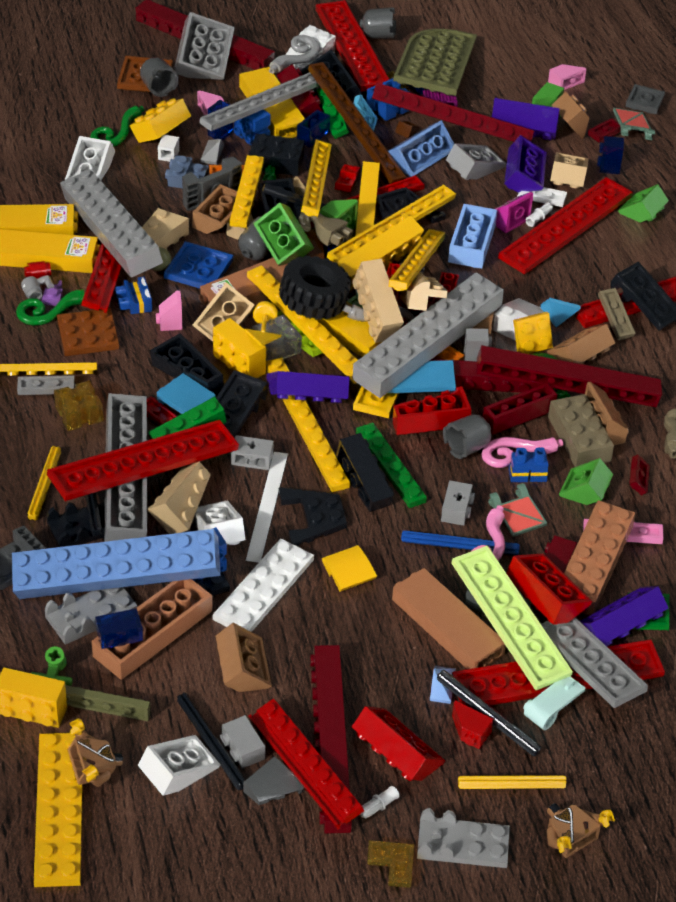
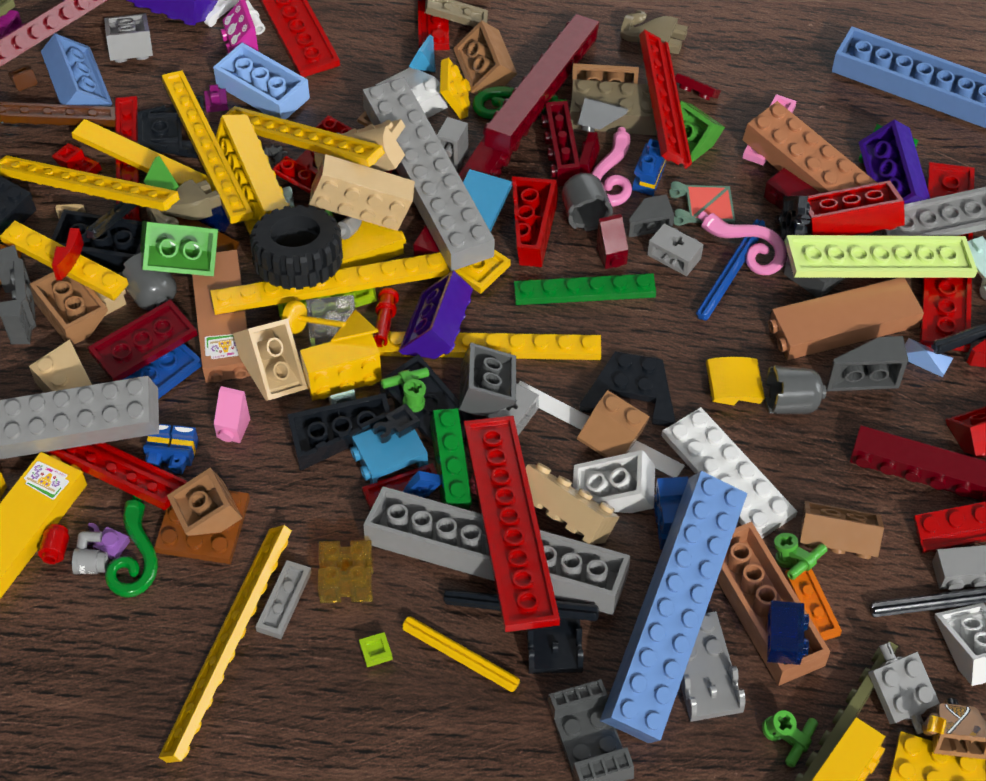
camera: 65 degrees left, 10 degrees up
(27, 439) = (375, 649): none -> lime plate
(90, 319) = (204, 505): none -> medium nougat slope
(115, 718) = (903, 687): none -> light grey plate
(158, 418) = (423, 484): none -> blue slope
(169, 658) = (815, 603): none -> orange plate
(202, 389) = (398, 421): none -> black plate
(203, 637) = (792, 556): none -> bright green piece
(207, 252) = (142, 341): none -> dark red plate
(218, 364) = (342, 397): none -> light aqua slope
(232, 382) = (412, 387): none -> bright green piece
(238, 185) = (67, 256): none -> red slope
(264, 507) = (613, 426): none -> medium nougat slope
(265, 423) = (487, 380): none -> dark grey slope
(303, 361) = (386, 310): none -> red pin
(352, 598) = (793, 390): none -> dark grey cylinder
(364, 472) = (599, 314): black wedge -> none
(402, 639) = (870, 366): none -> dark grey slope
(436, 461) = (612, 241): none -> slope
(447, 223) = (215, 99): none -> magenta tile
(483, 480) = (650, 216): none -> dark grey slope
(521, 429) = (590, 152): none -> dark red plate
(522, 547) = (793, 216): none -> black plate
(553, 413) = (598, 114): none -> slope
(592, 445) = (665, 100): none -> red plate

